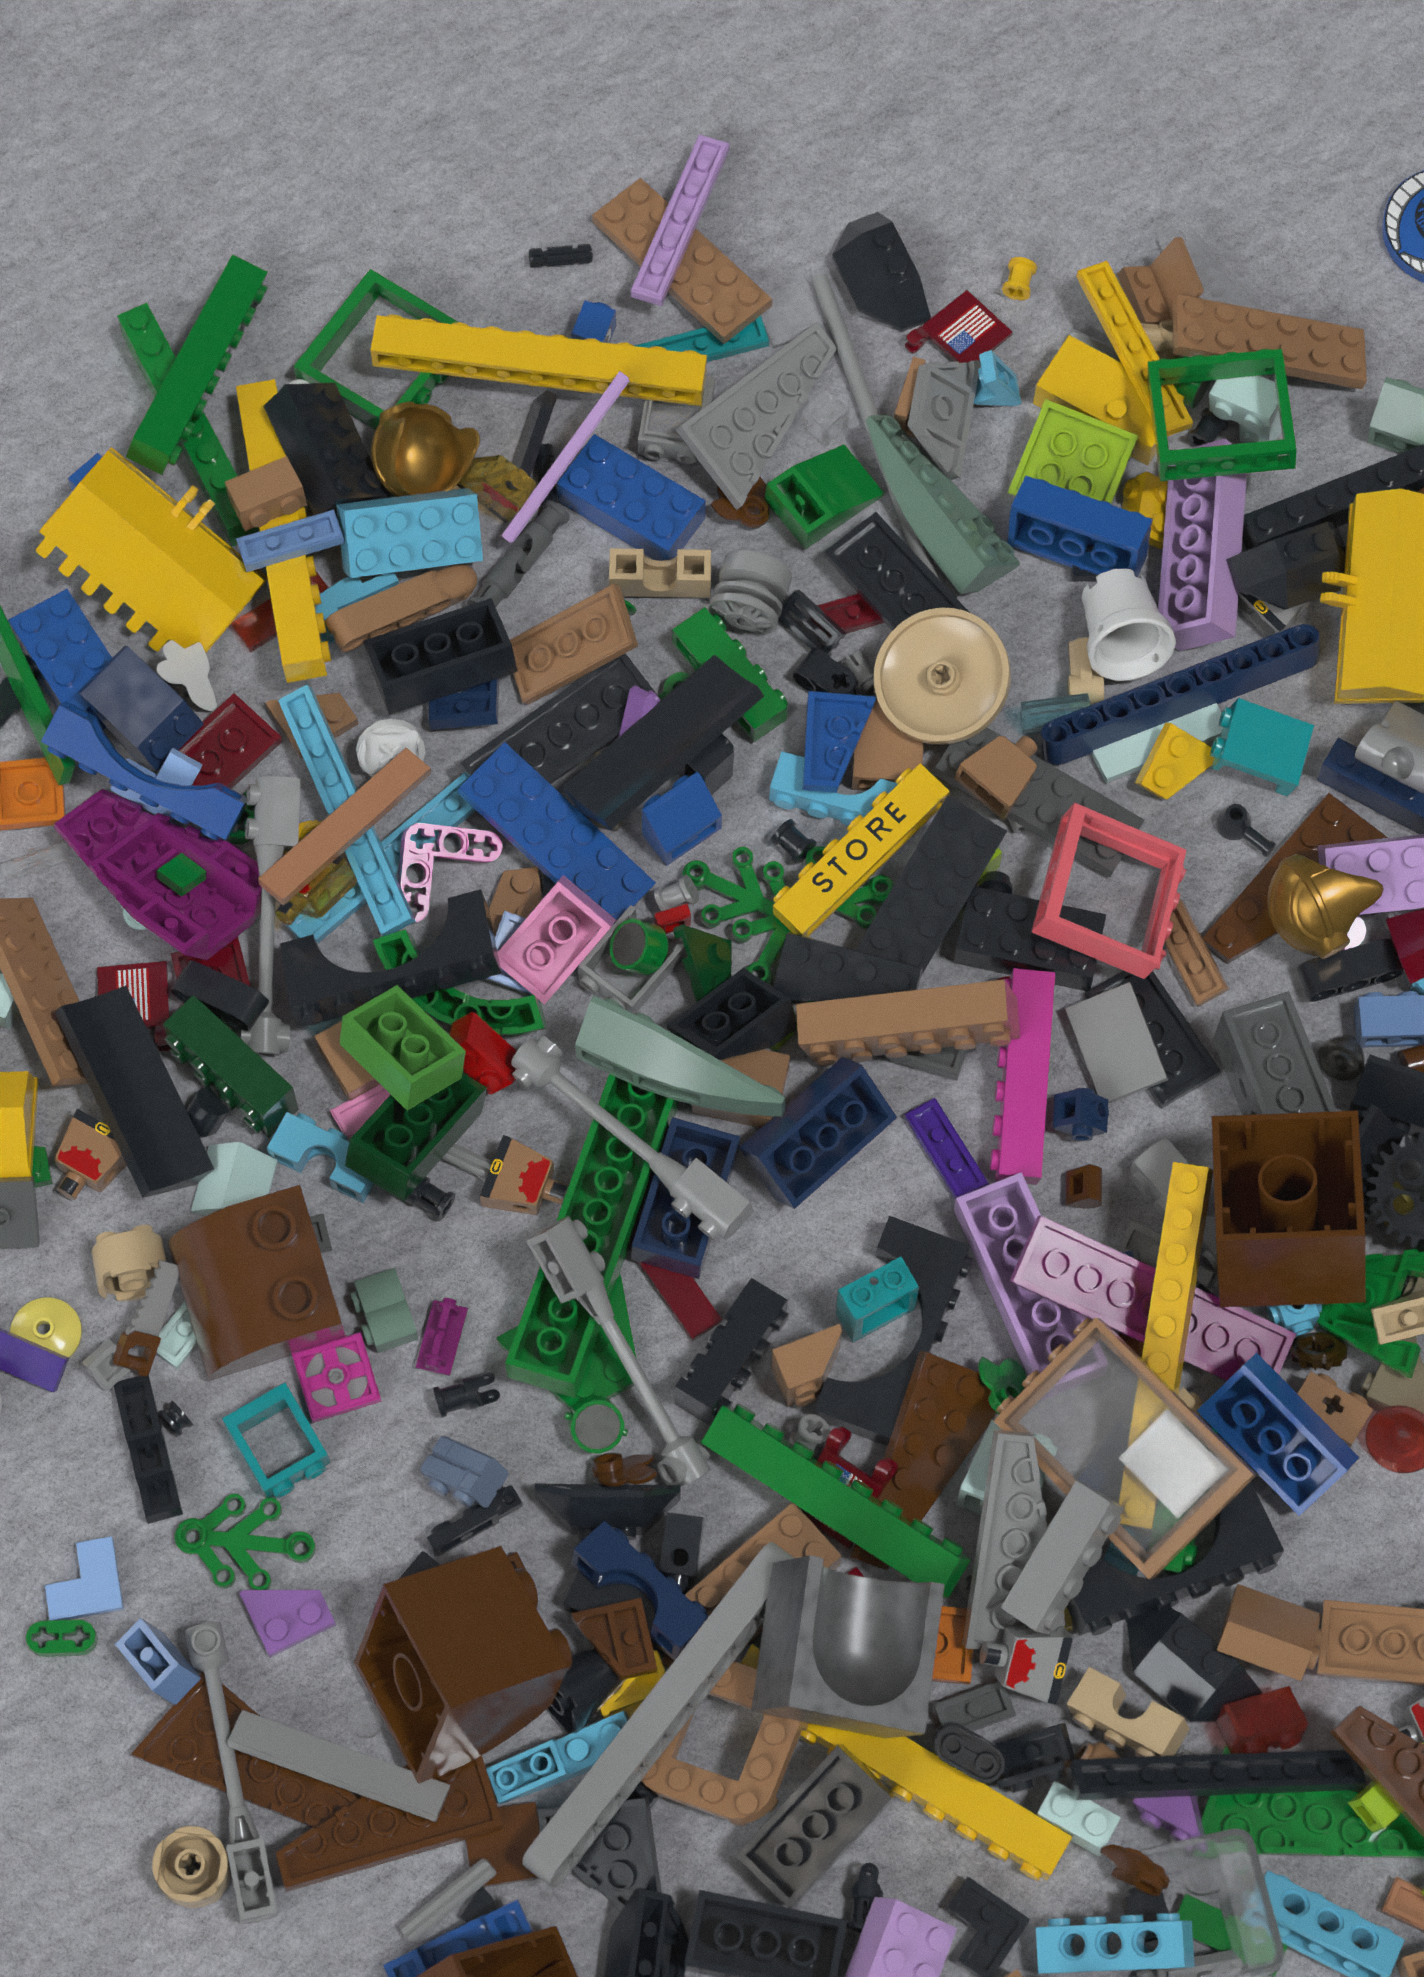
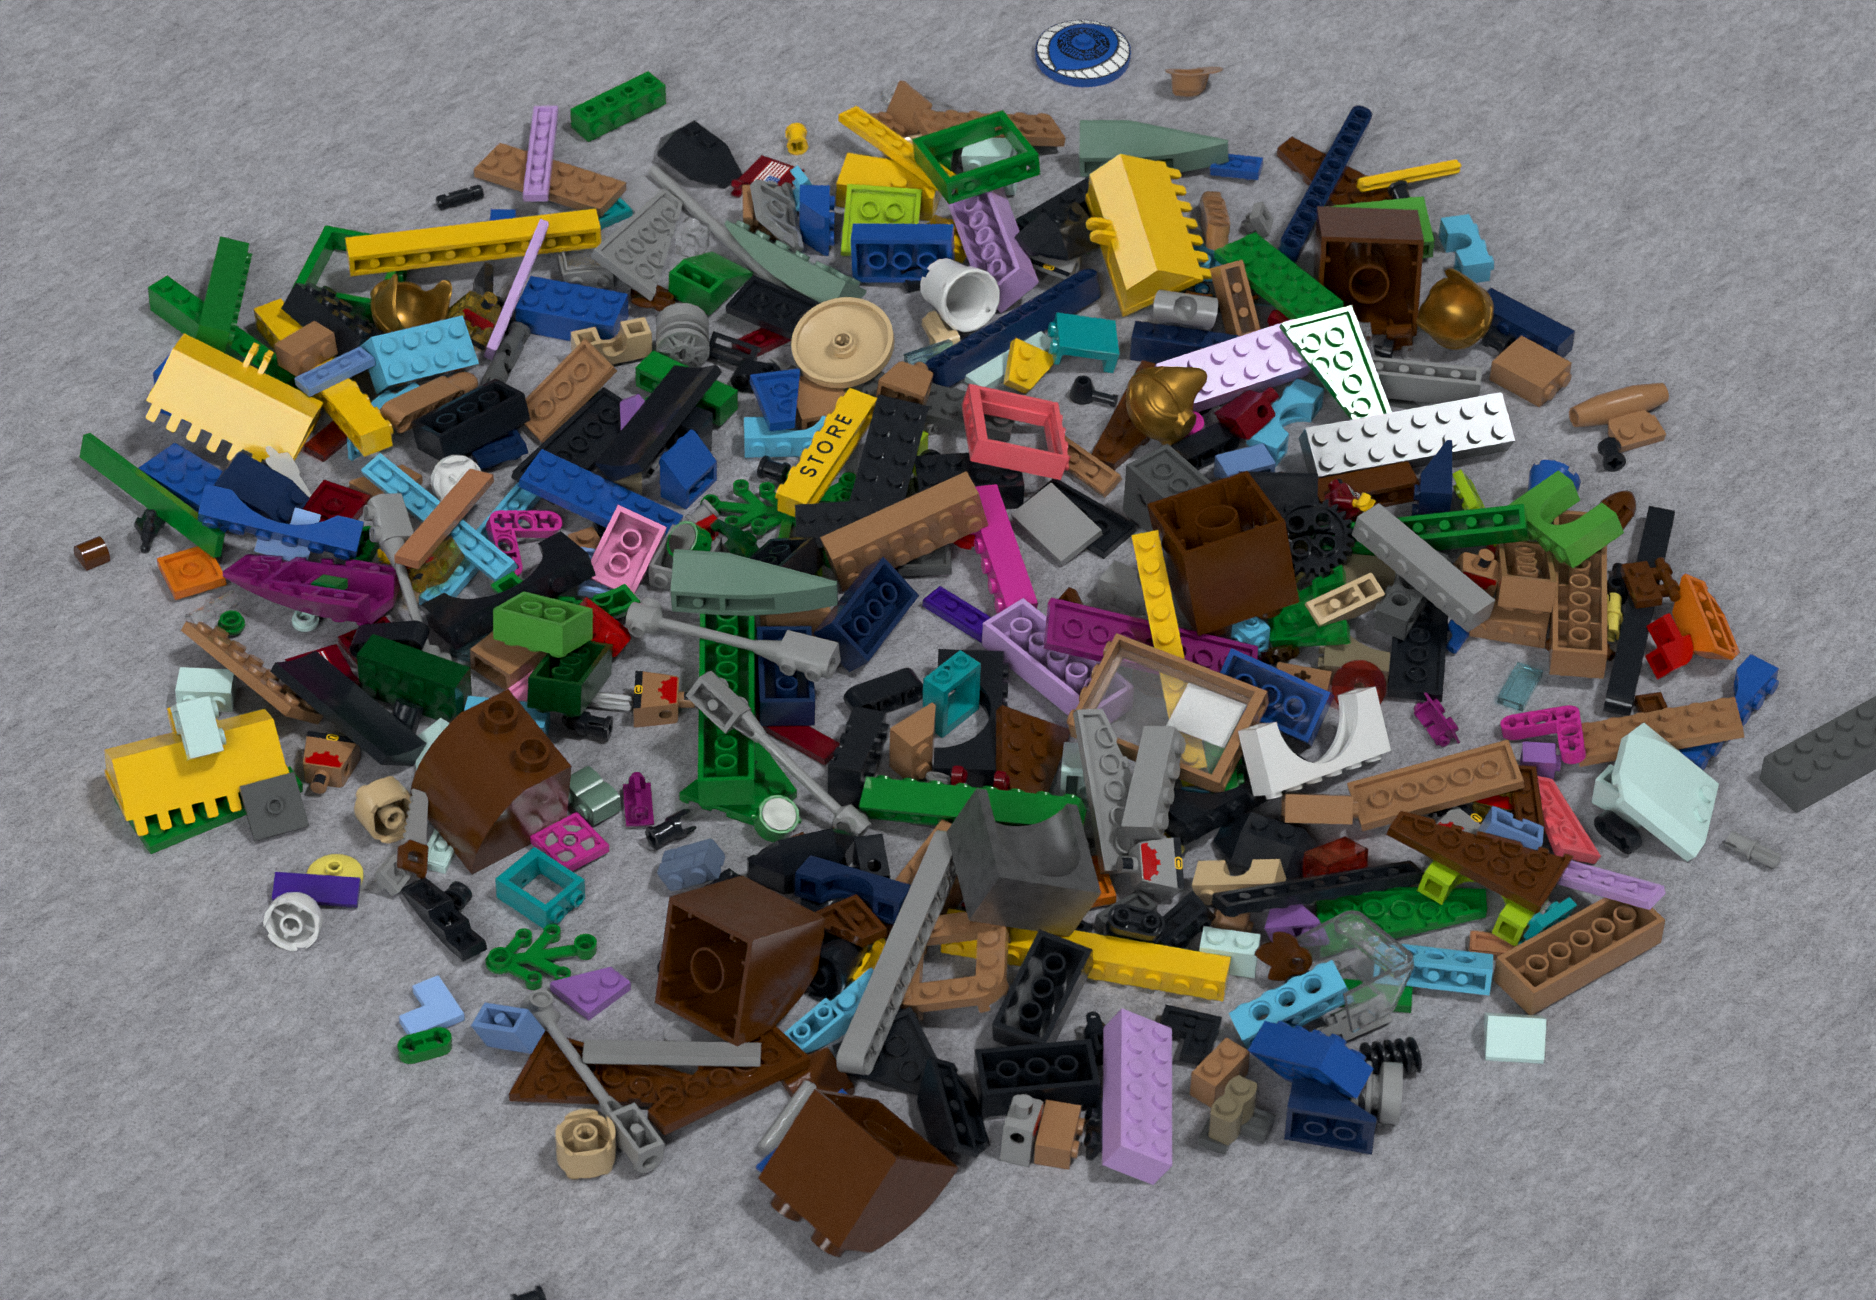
camera: 20 degrees left, 25 degrees down
(50, 882) = (231, 622): none -> green plate
(802, 1258) = (886, 692): none -> black beam
(810, 158) = (618, 106): none -> green brick
(993, 433) = (815, 217): none -> blue slope
(1001, 1380) = (1060, 721): green plate -> none
(1080, 1113) = (1049, 564): dark blue brick -> none
(1363, 1536) = (1358, 738): none -> white arch

